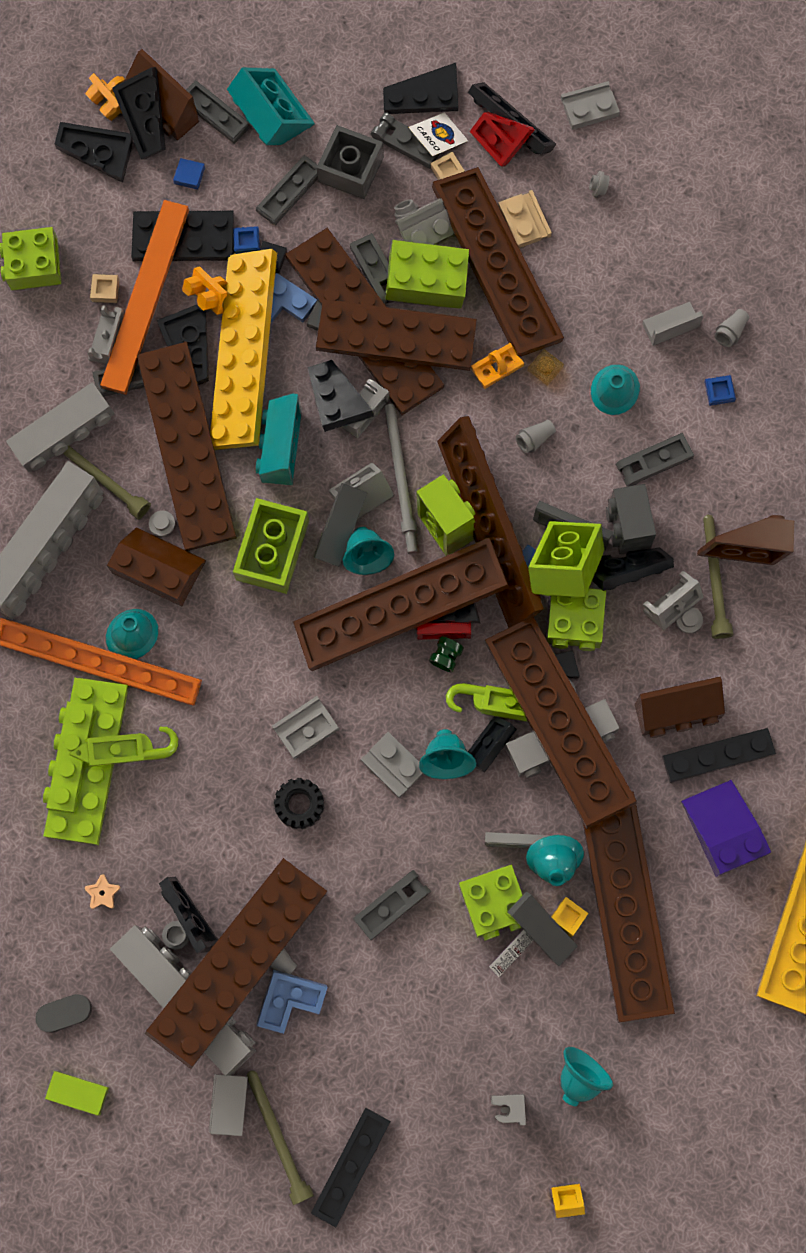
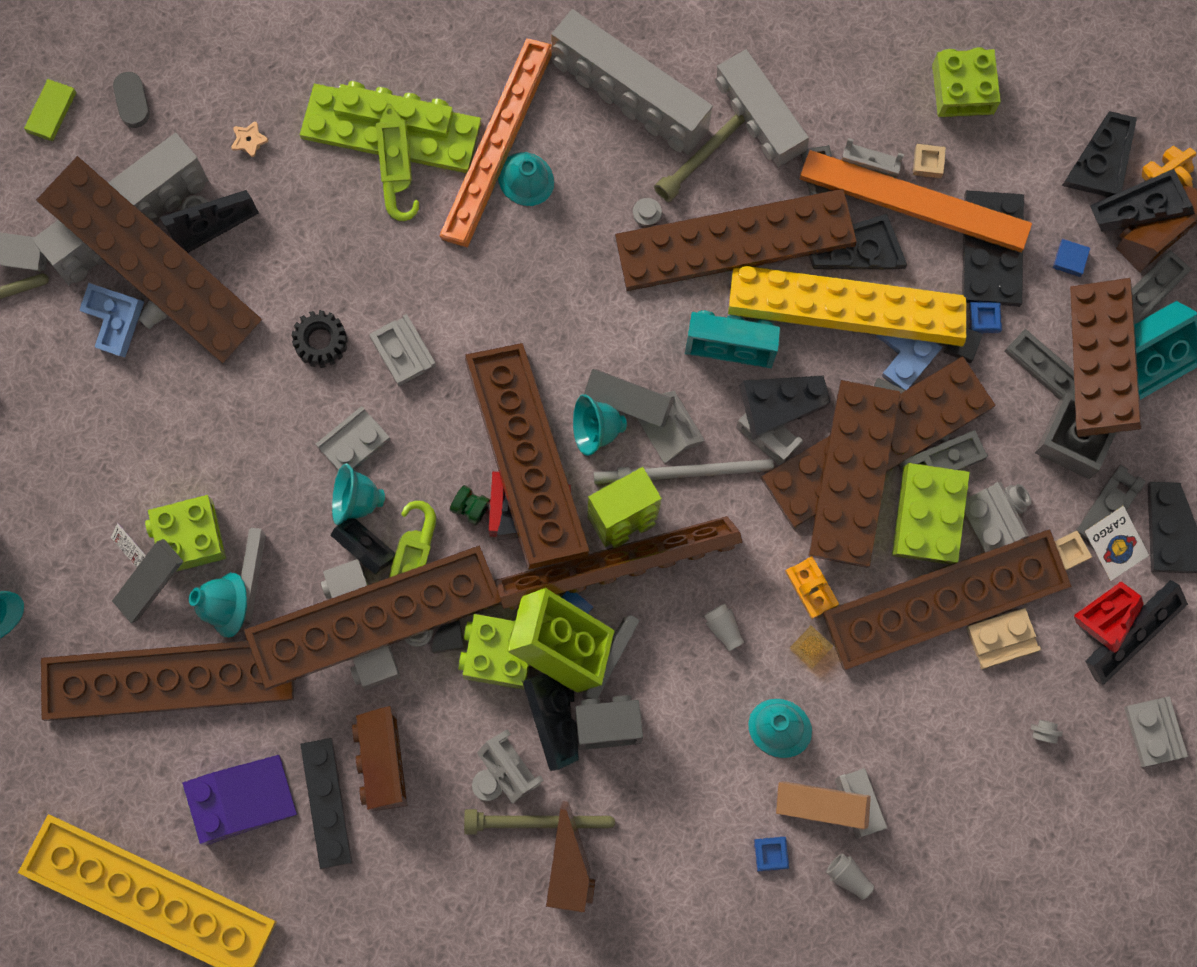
camera: 85 degrees right, 0 degrees up
(156, 565) = (598, 203): reddish brown slope -> none
(197, 285) = (915, 272): light orange hips -> none
(271, 546) = (608, 322): lime brick -> none
(284, 138) = (1105, 358): none -> reddish brown plate
(391, 905) = (198, 427): dark grey plate -> none
(569, 916) = (162, 614): yellow plate -> none
(655, 459) = (686, 765): dark grey plate -> none
(679, 346) = (823, 804): none -> medium nougat tile

